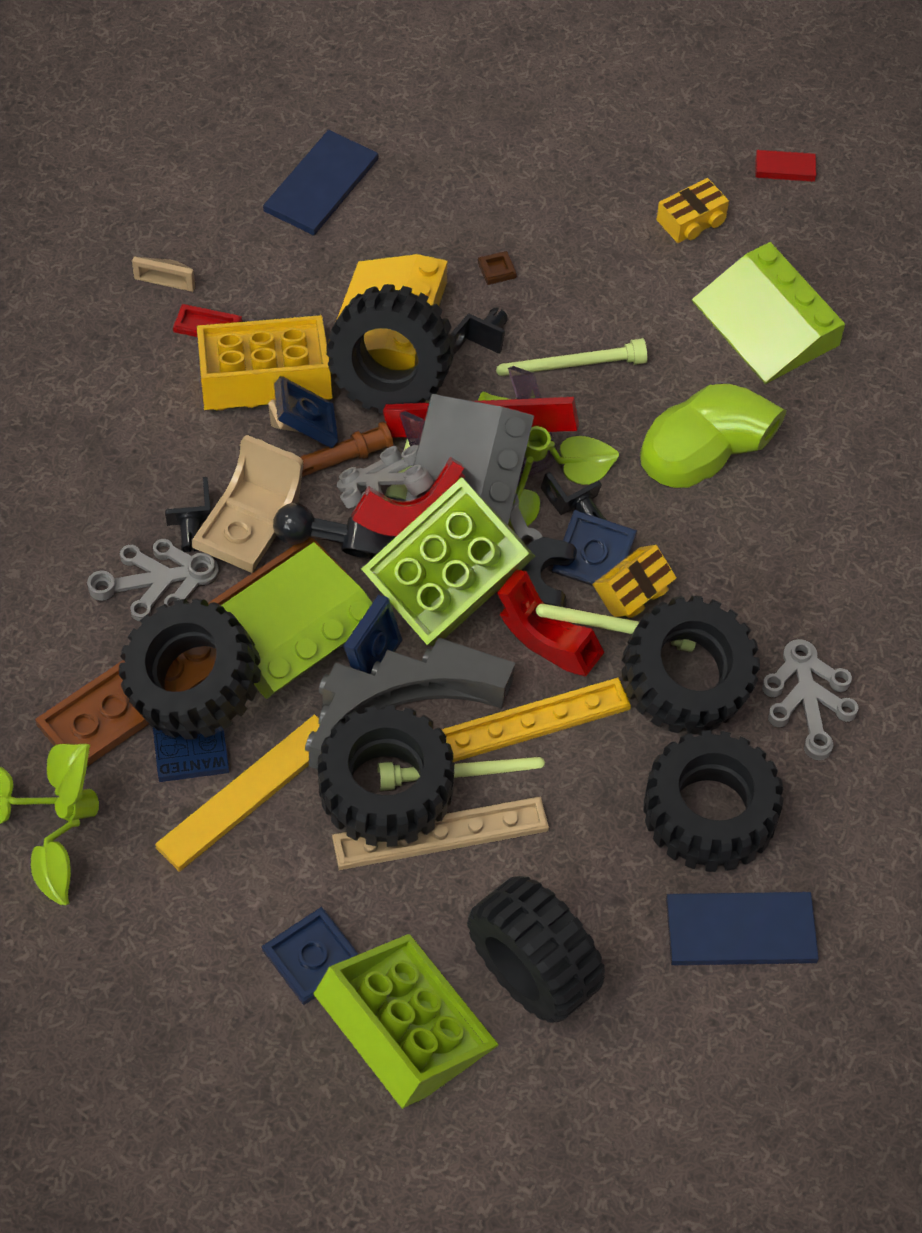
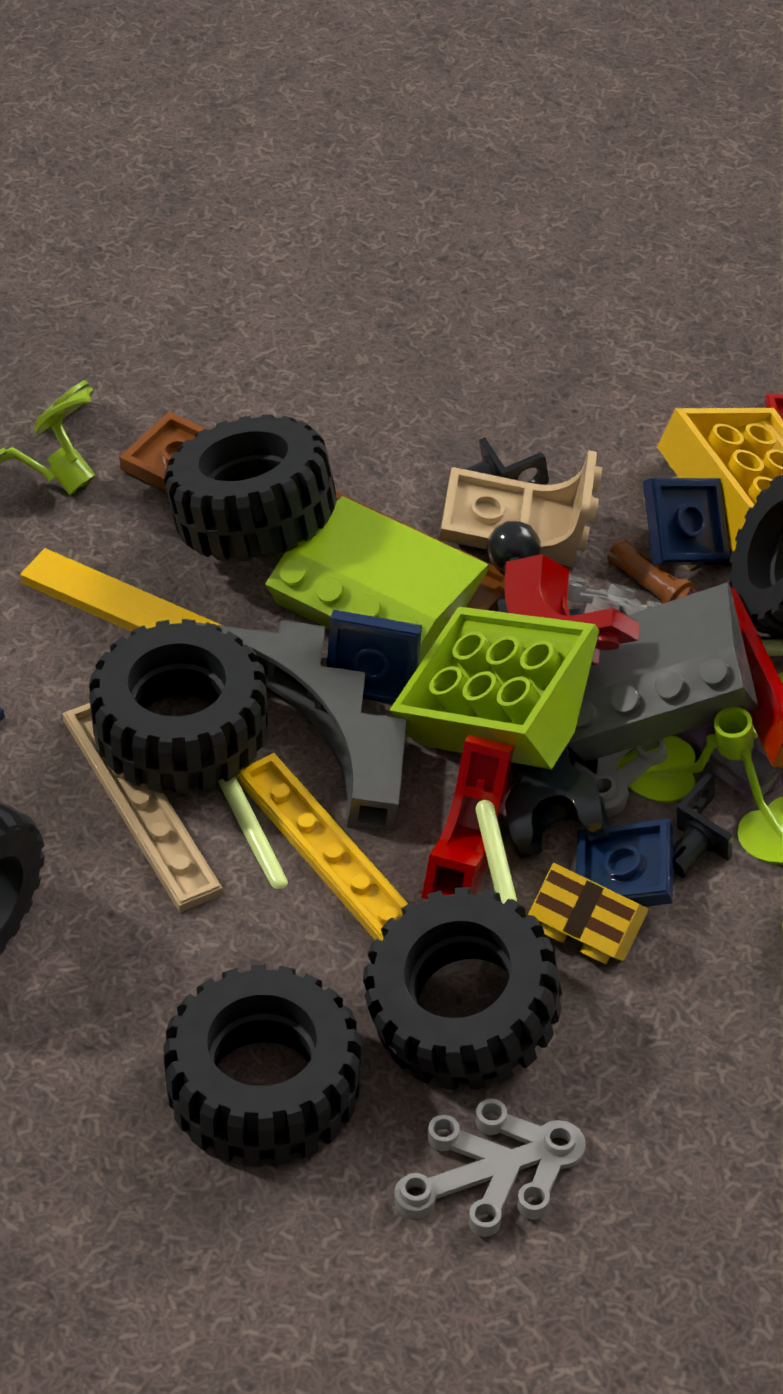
camera: 75 degrees right, 10 degrees down
(157, 576) = (423, 497): light grey plant -> none
(190, 758) = (173, 561): dark blue tile -> none
(741, 928) = (90, 1155): dark blue tile -> none

